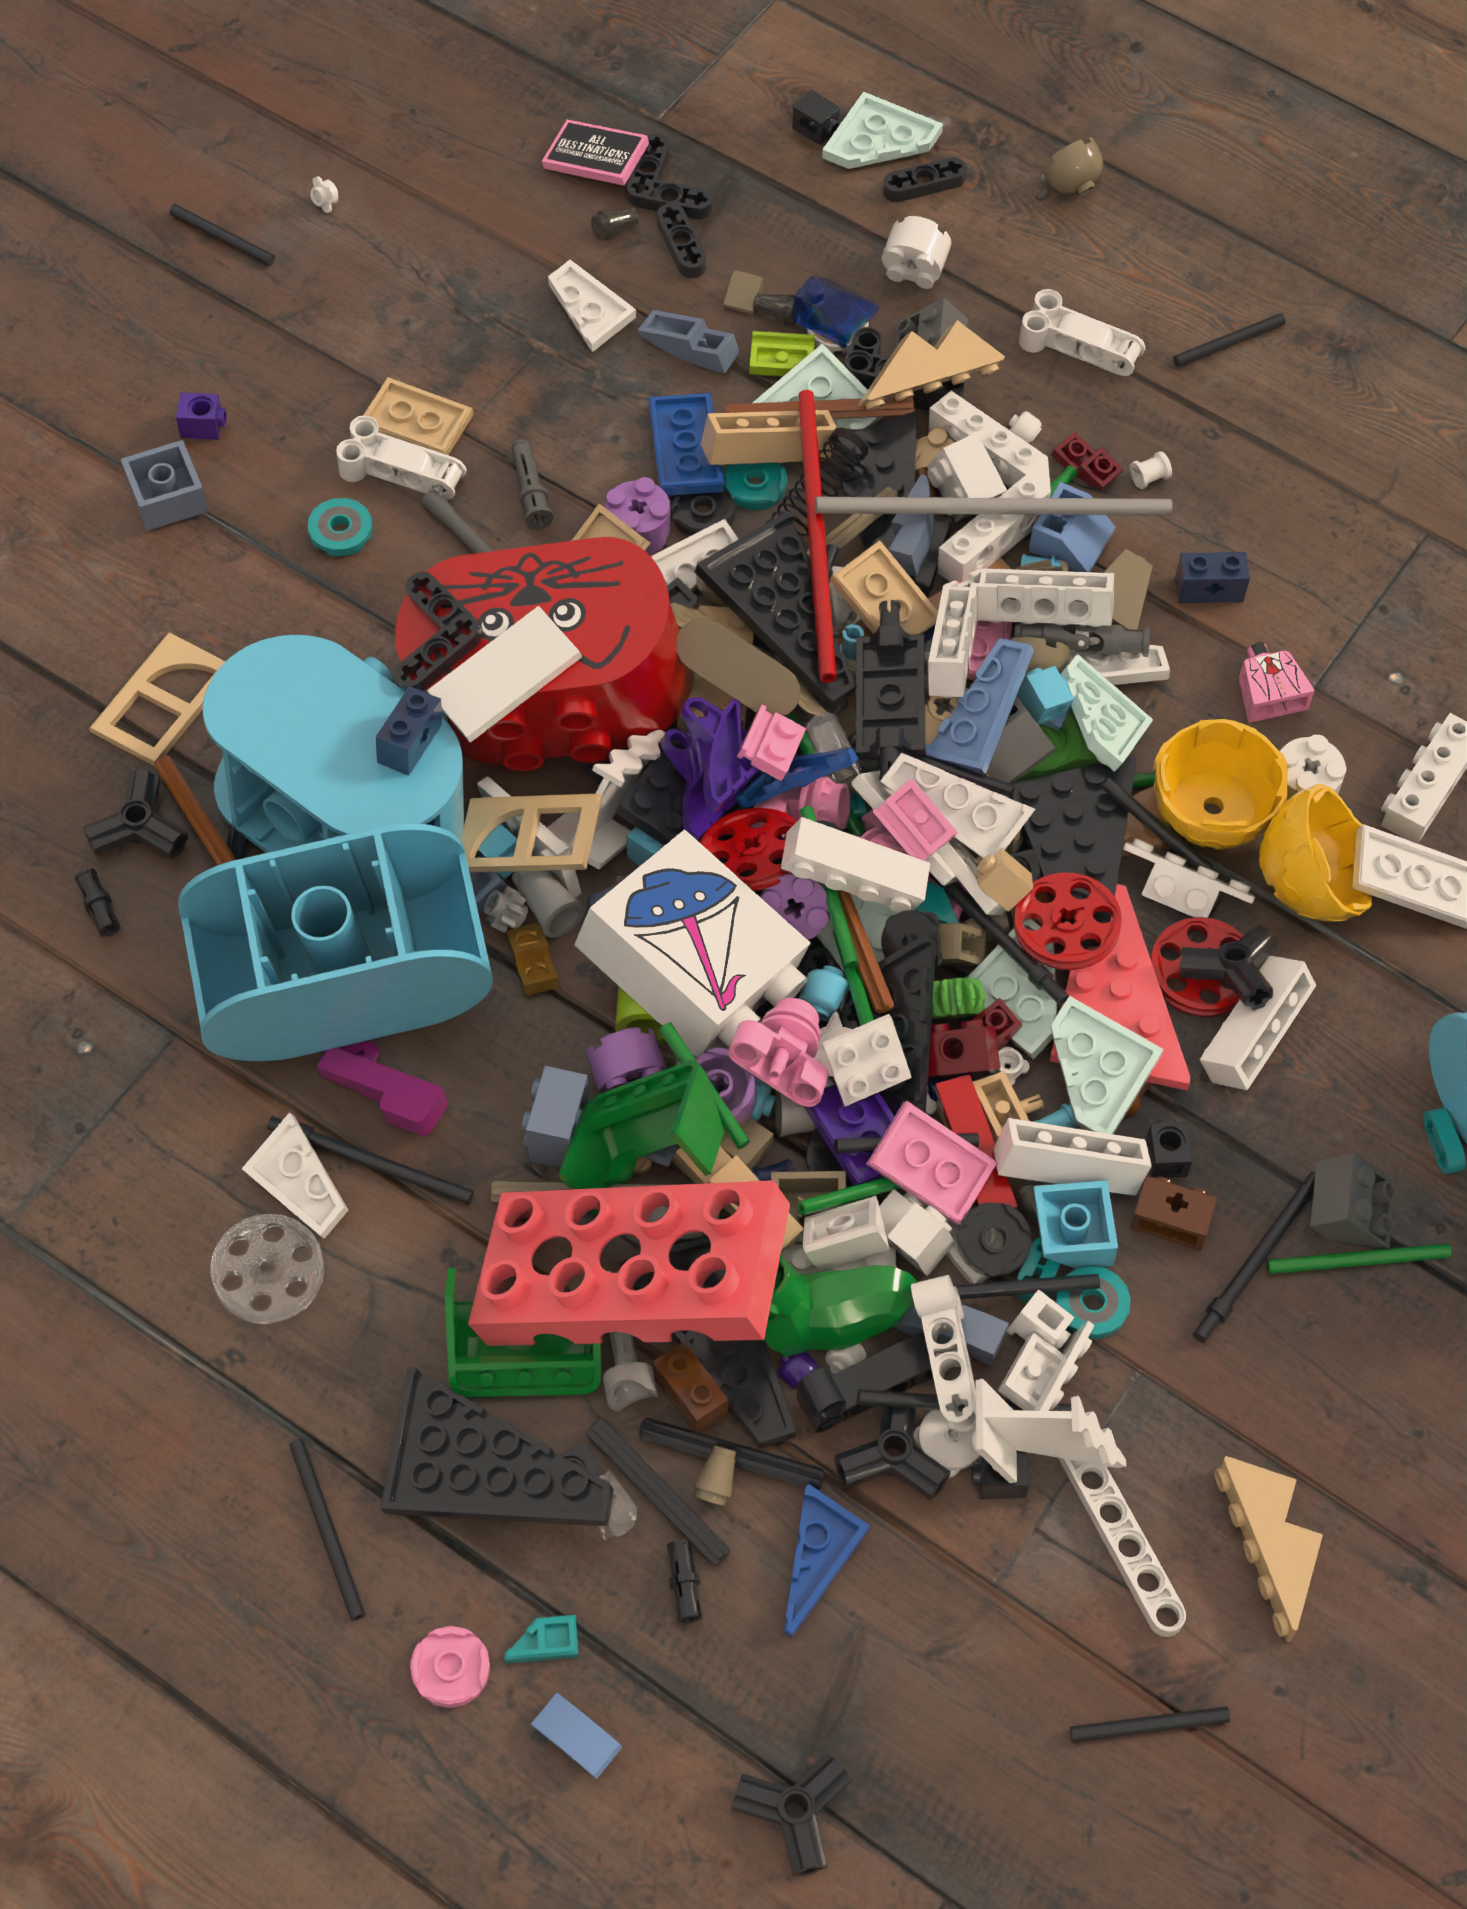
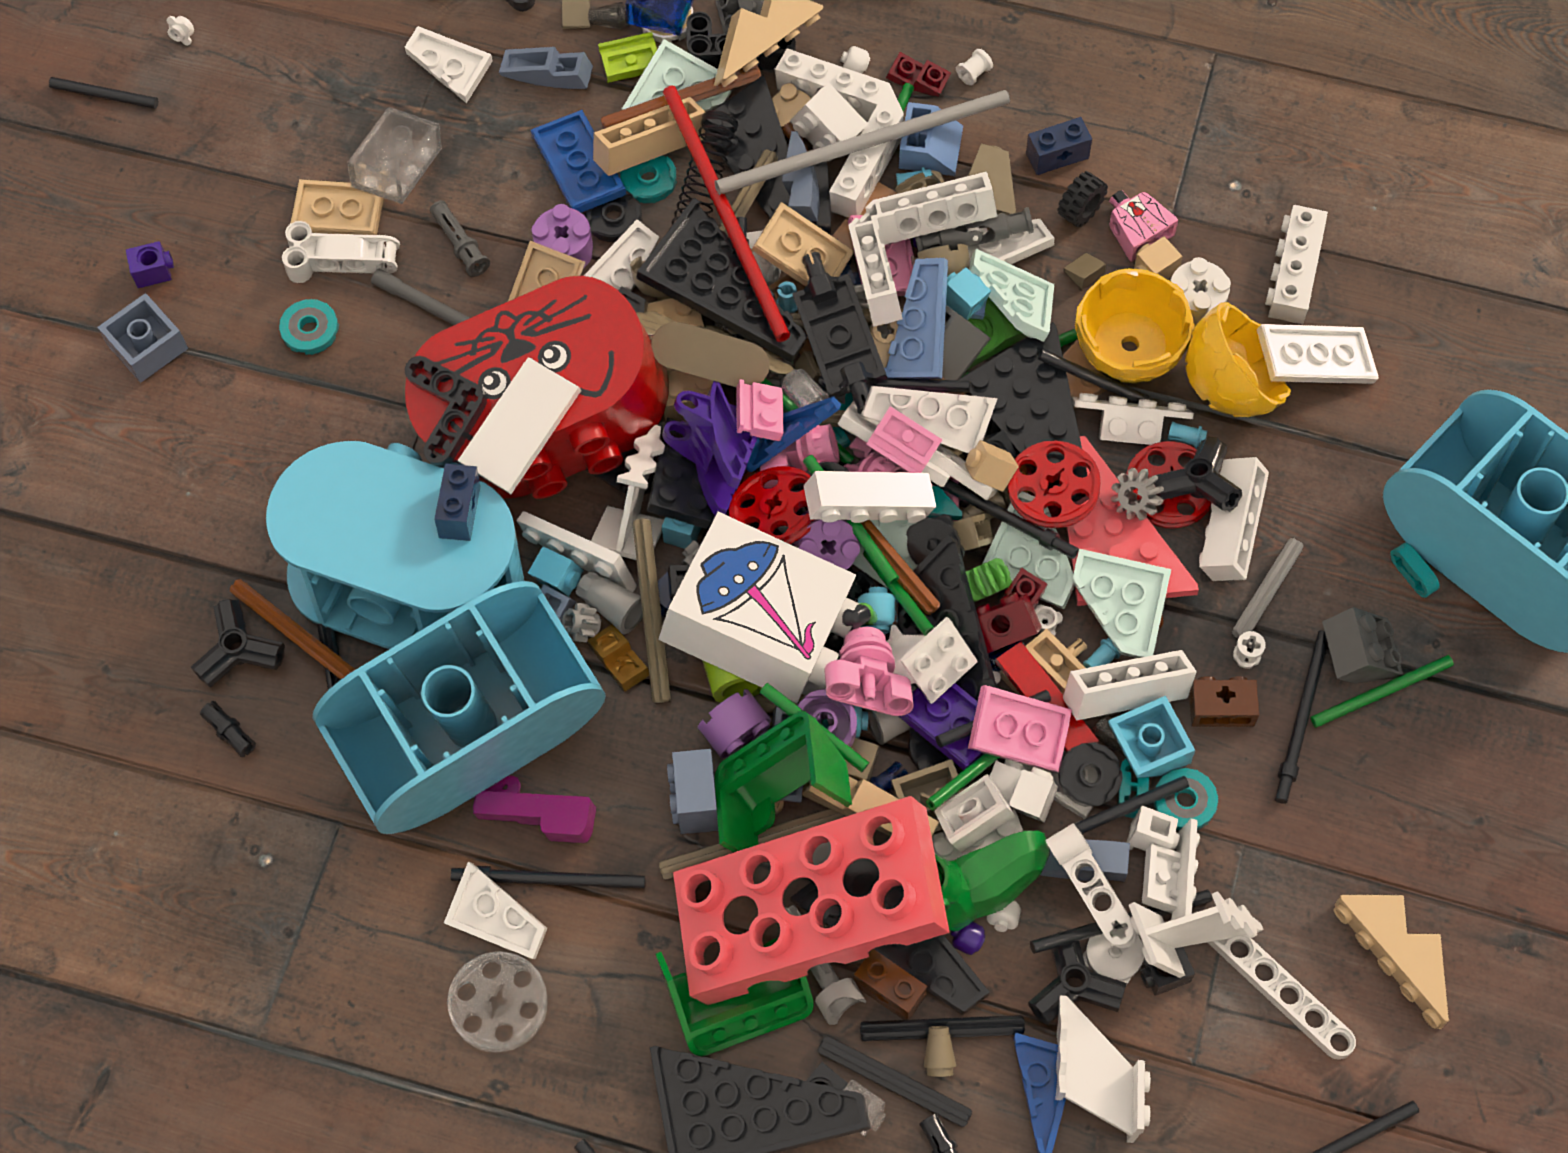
camera: 15 degrees left, 5 degrees up
(168, 656) = (204, 488): tan window -> none
(489, 812) = (537, 545): tan window -> none
(494, 379) = (394, 155): none -> clear brick
(587, 897) = (651, 610): none -> dark tan axle
(799, 986) = (859, 616): none -> black arm
(833, 1398) = (1011, 951): black beam -> none
(879, 1555) = (1097, 1075): none -> white piece
(1156, 959) = (1127, 497): none -> light grey gear
(1165, 1162) = (1201, 661): black brick -> none
(1192, 712) = (1085, 270): none -> dark tan slope
(1216, 638) = (1082, 199): none -> black tyre
(1218, 1158) = (1257, 648): none -> white bush
(1239, 918) = (1186, 434): none -> medium azure pin
(1269, 1110) = (1268, 587): none -> light grey axle
(1278, 724) = (1159, 258): none -> tan brick

